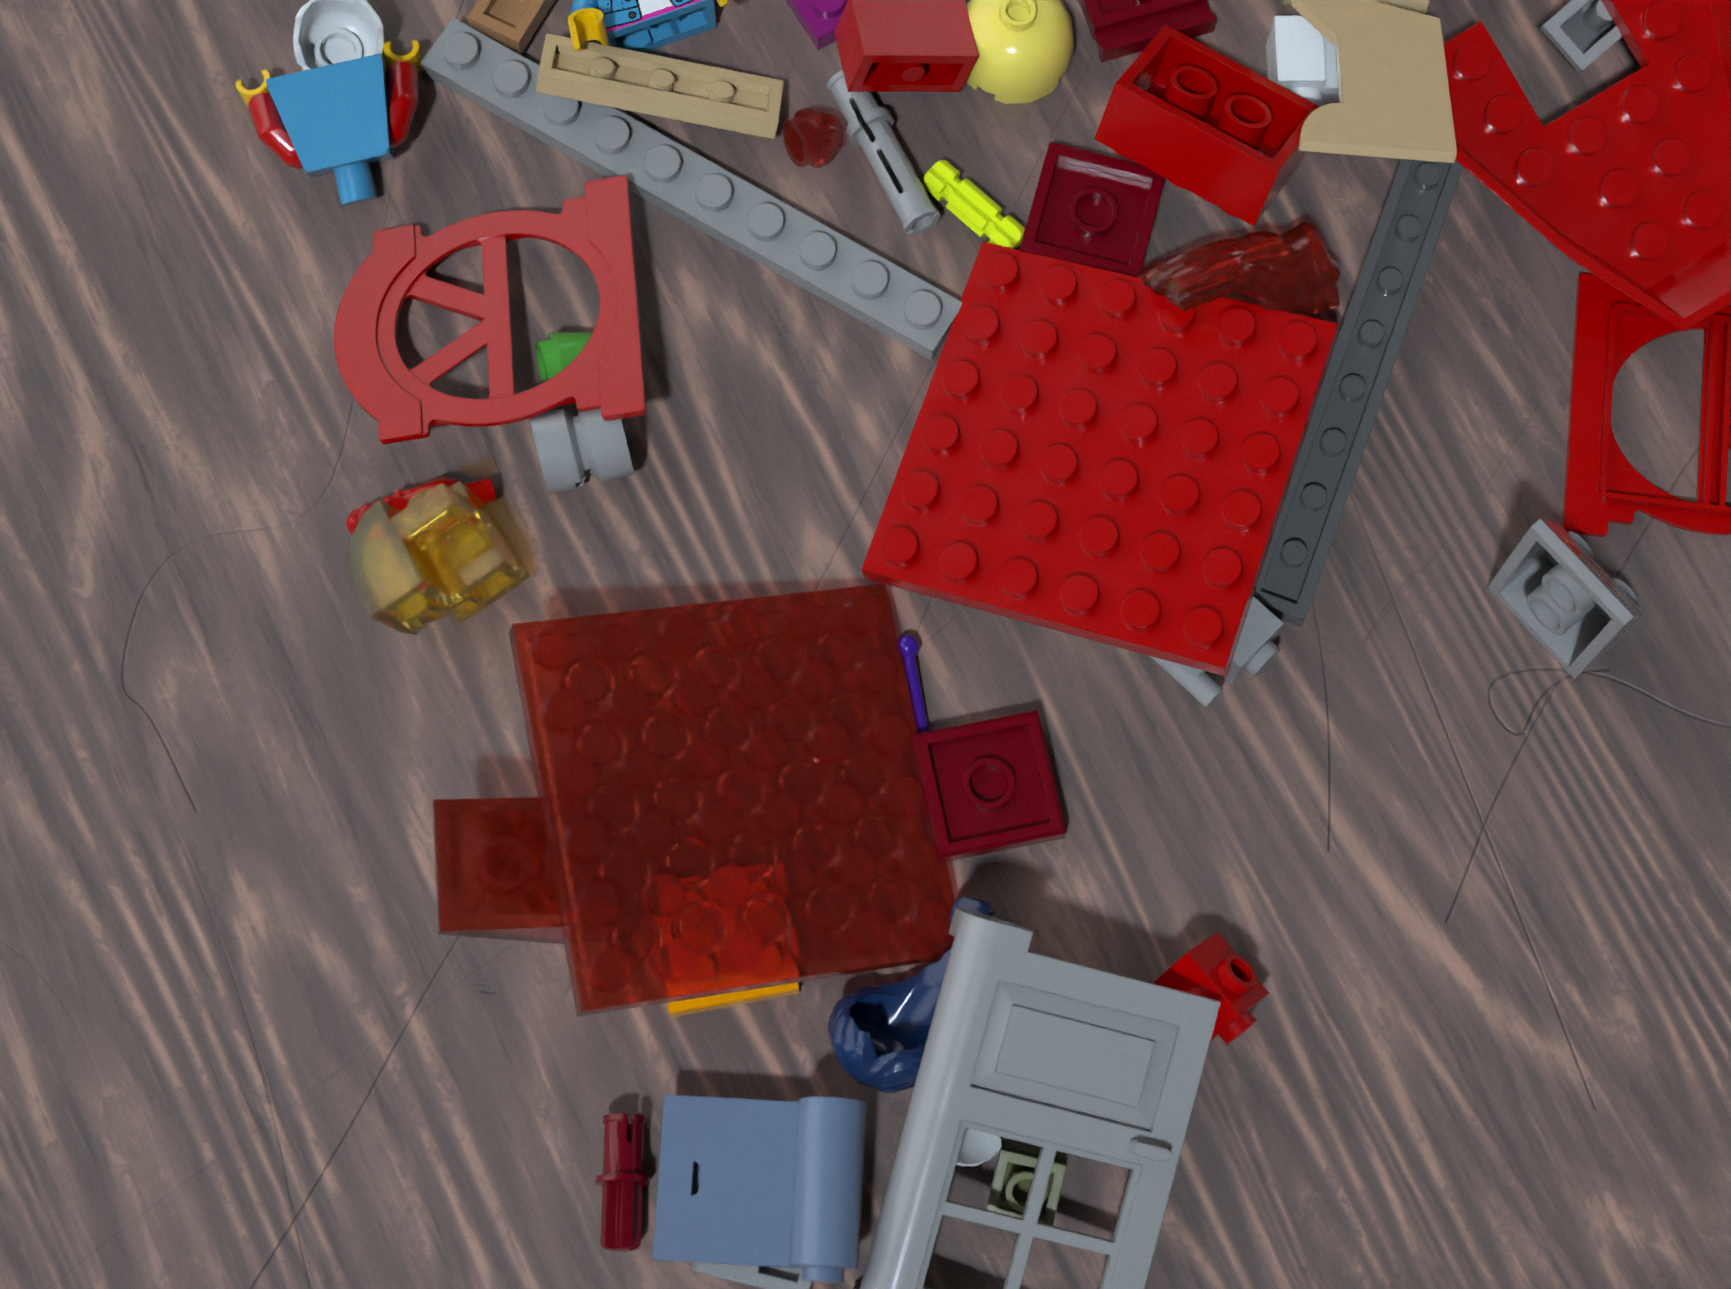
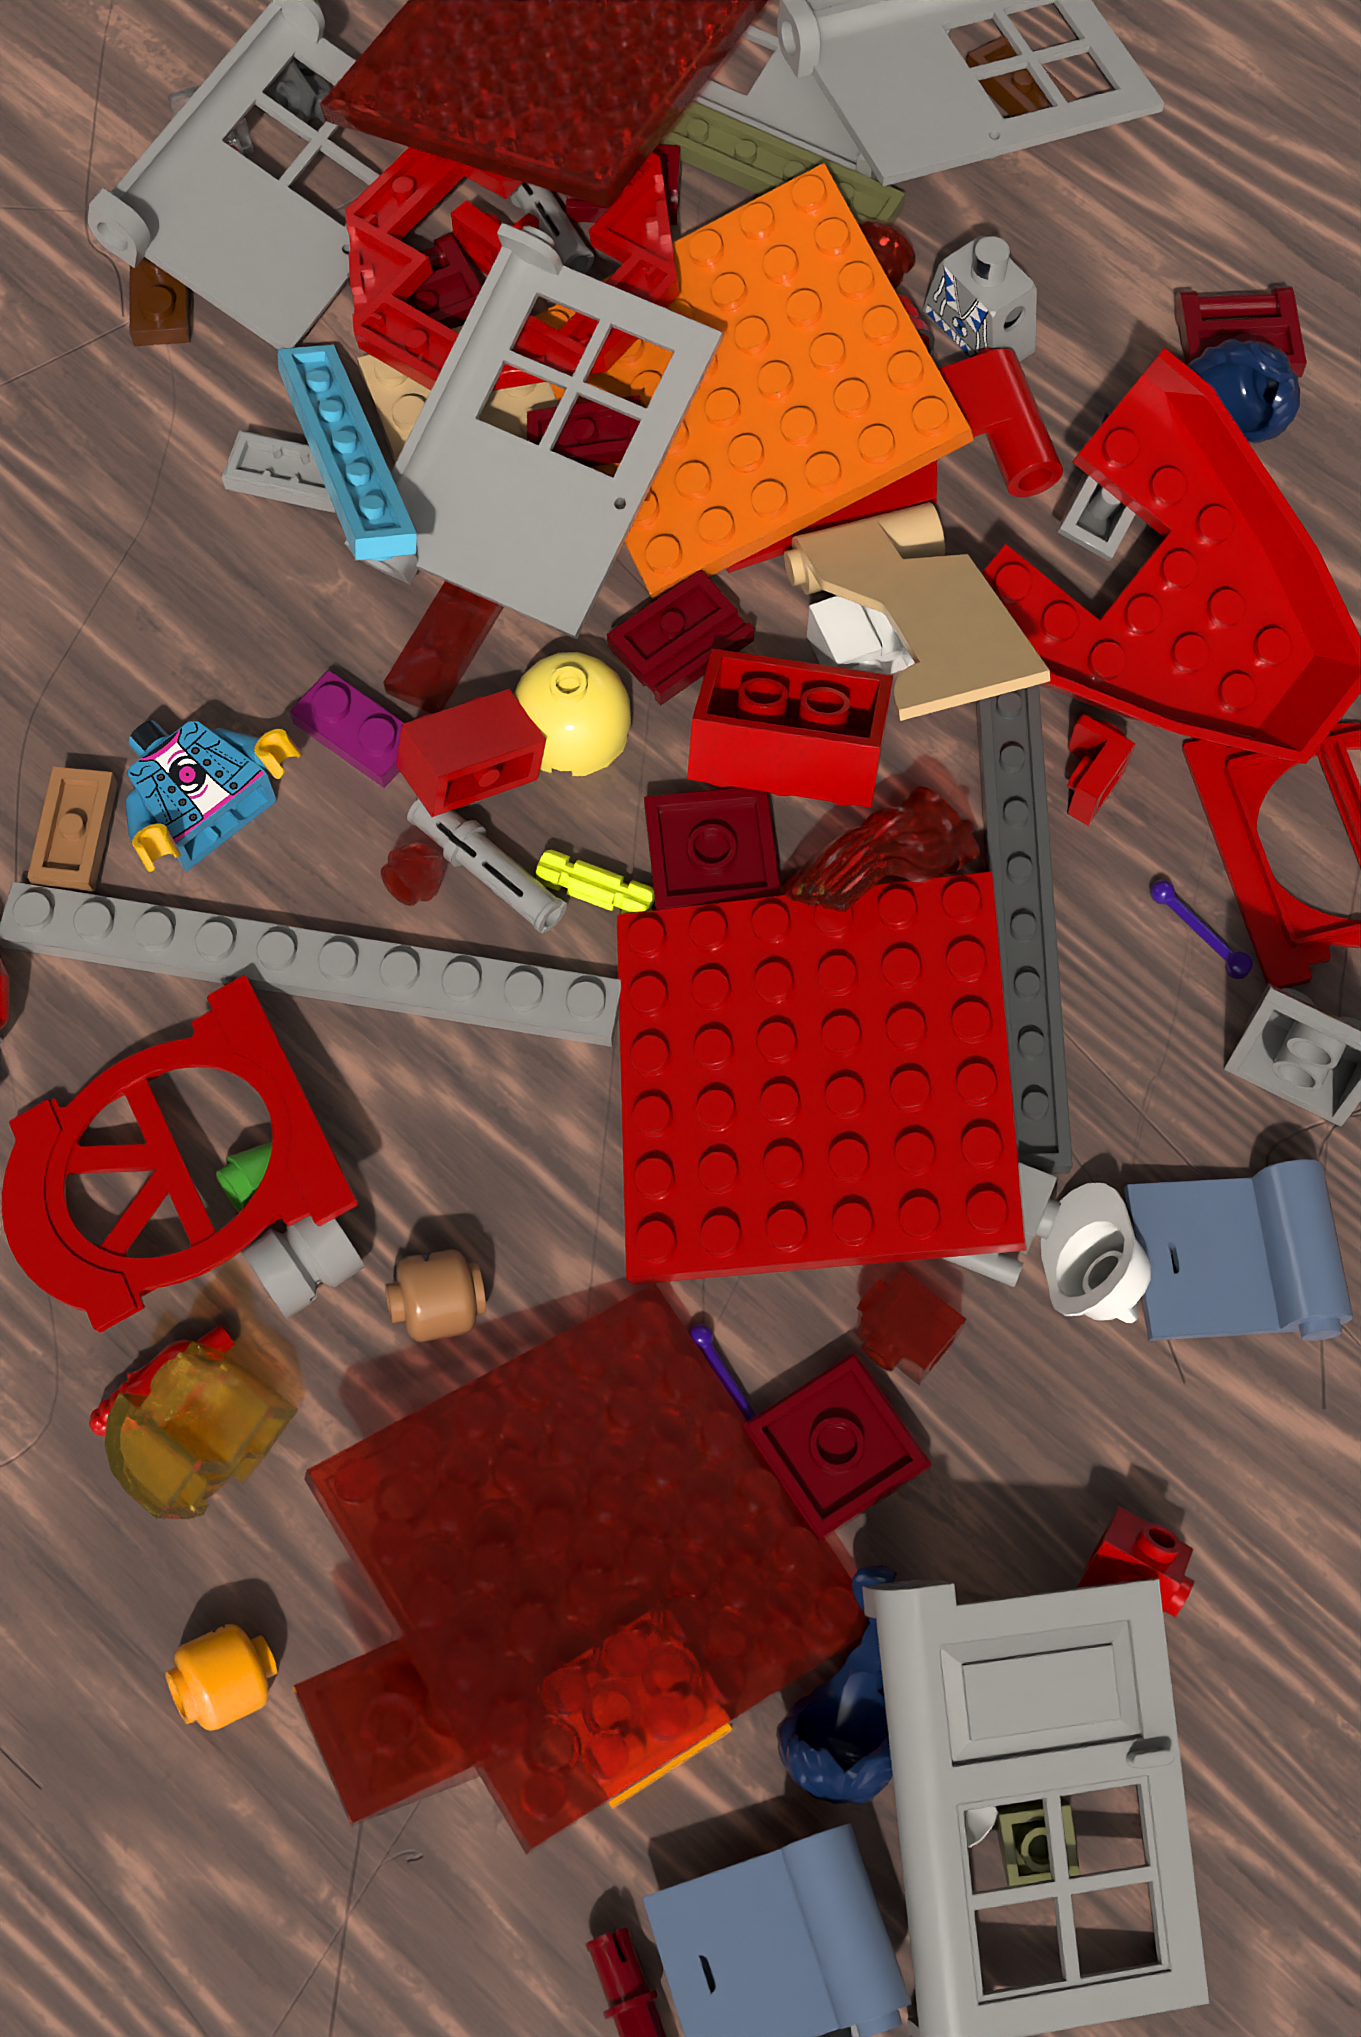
camera: 20 degrees left, 5 degrees down
(379, 776) = (221, 1677): none -> light orange head
(660, 86) = (245, 877): tan plate -> none
(687, 521) = (436, 1295): none -> medium nougat head
(1094, 705) = (907, 1326): none -> clear red brick
(1290, 708) = (1094, 1257): none -> white piece
(1429, 756) = (1243, 1253): none -> sand blue door
(1489, 268) = (1103, 763): none -> red bracket
(1542, 495) = (1237, 963): none -> dark purple hinge

